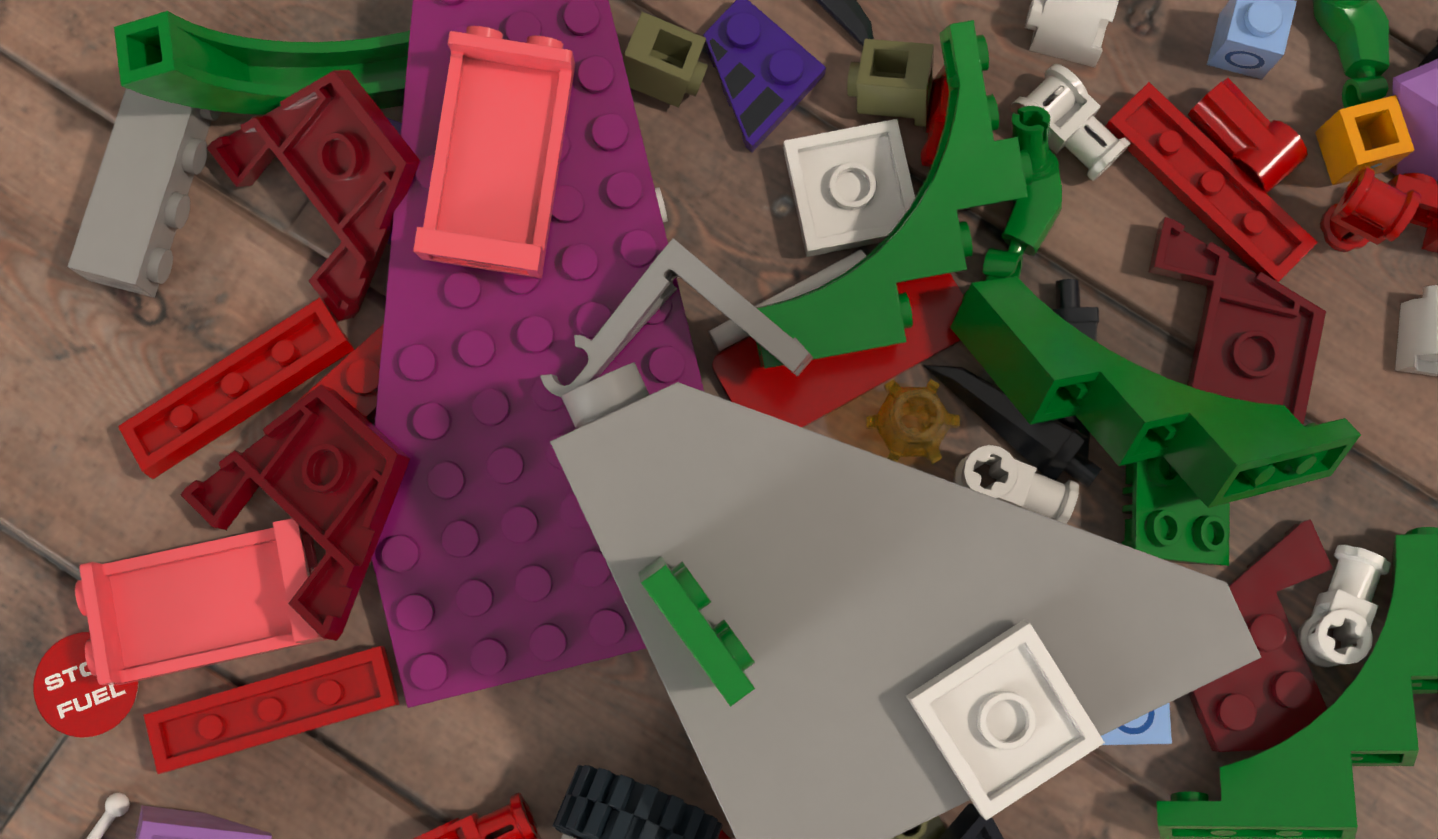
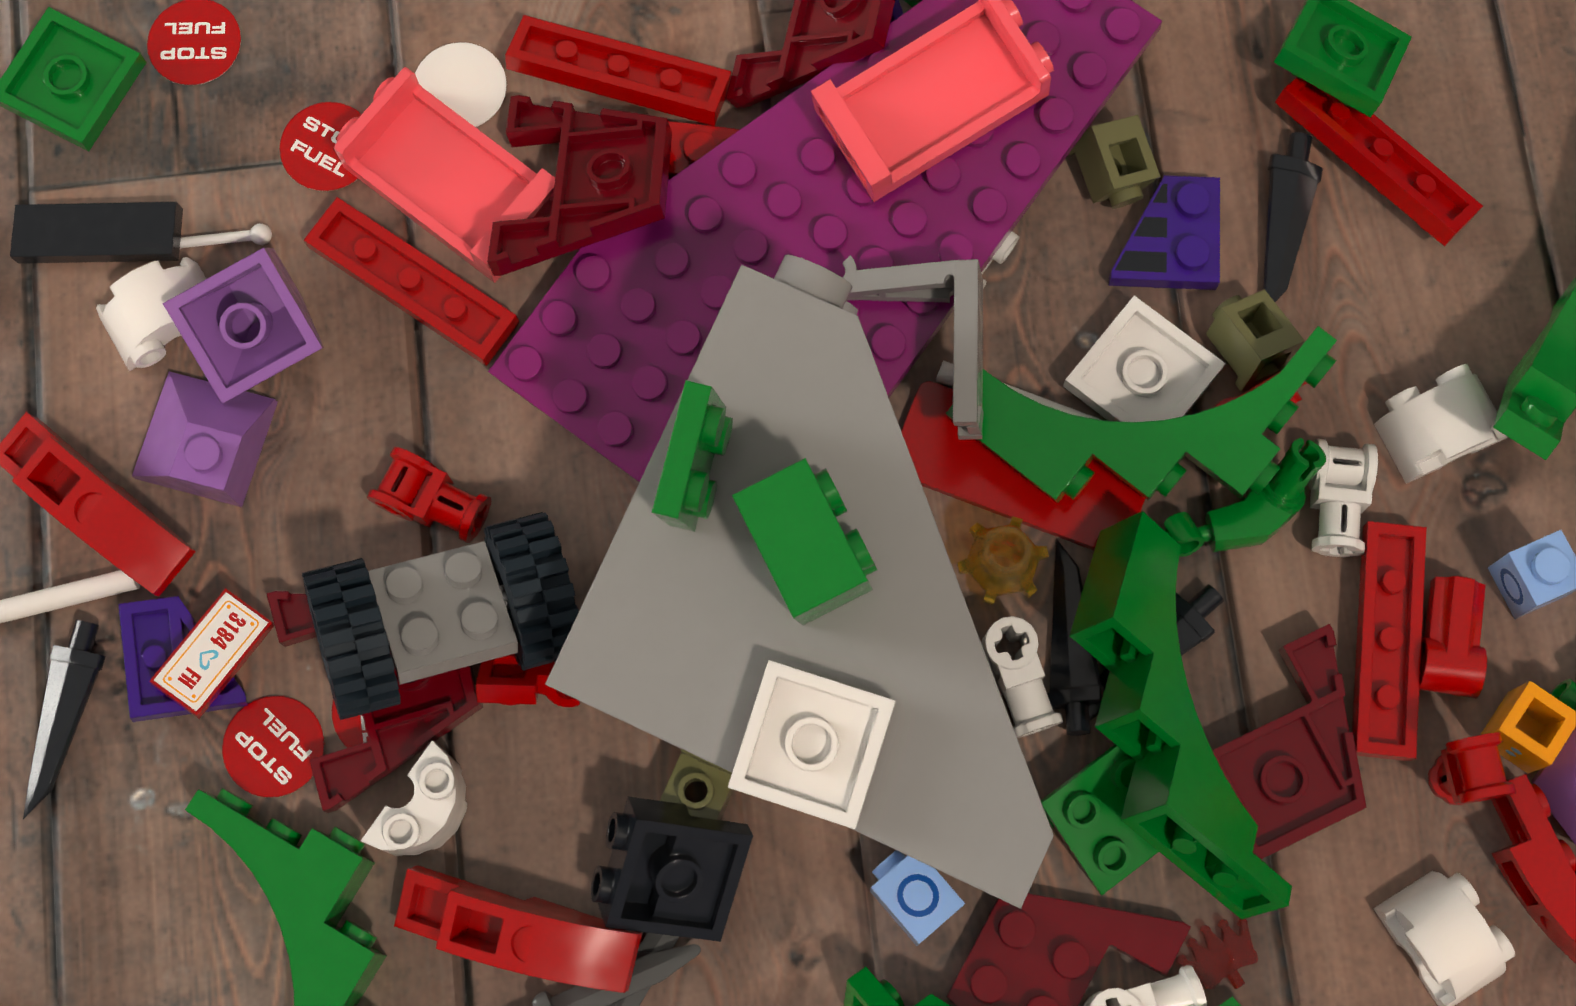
camera: 55 degrees right, 5 degrees down
(129, 522) = (464, 80): none -> white sticker
(851, 594) = (803, 542): none -> green brick
(1347, 513) = (1221, 956): none -> clear red piece

